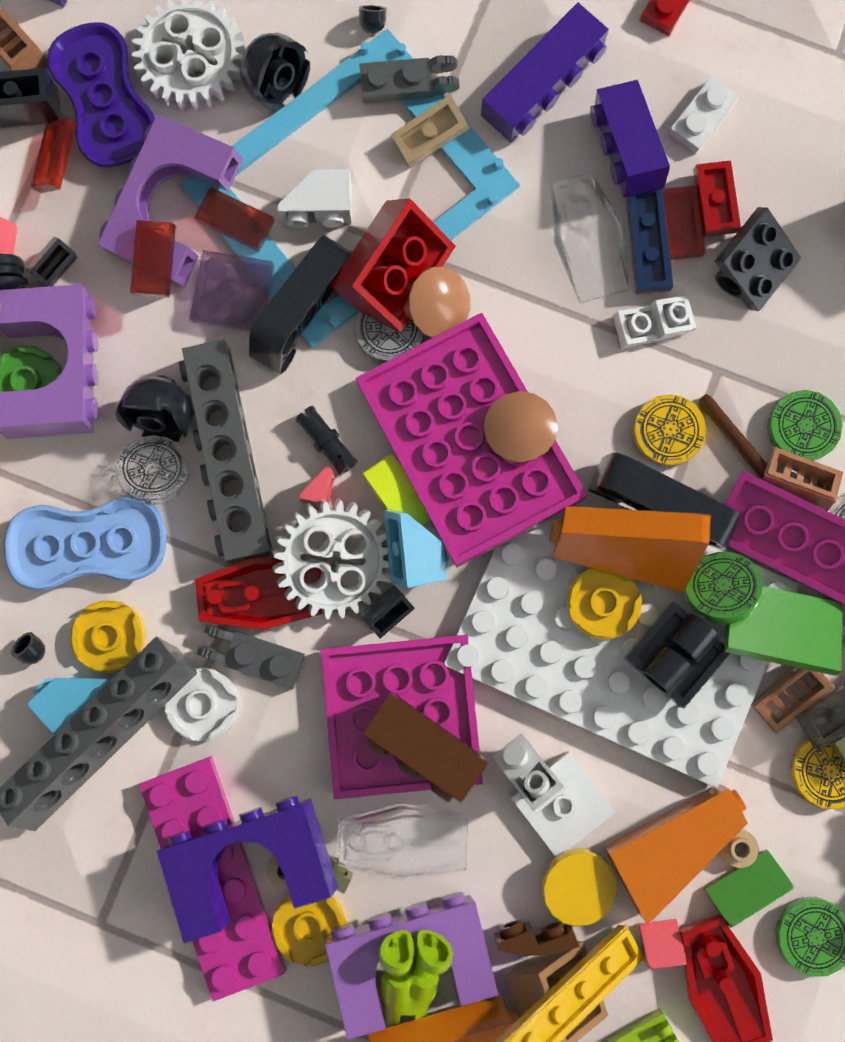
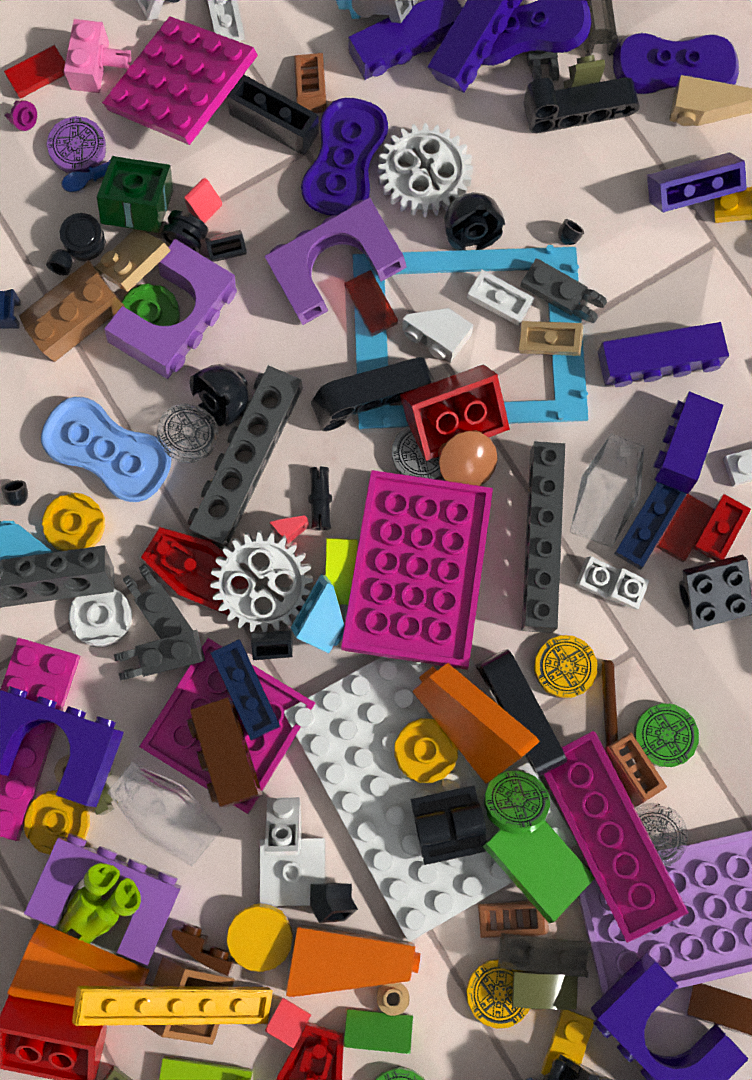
camera: 35 degrees right, 5 degrees down
(53, 155) = (281, 175): clear red tile -> none
(153, 258) = (293, 292): clear red tile -> none
(230, 290) = (332, 349): clear purple plate -> none
(291, 697) = (163, 655): none -> dark grey hinge
(353, 126) = (500, 297): none -> white plate
(395, 671) = (245, 690): none -> dark blue plate
(520, 427) = (457, 585): nougat dish -> none
(562, 324) = (543, 537): none -> dark grey brick
(621, 804) = (332, 901): none -> black piece

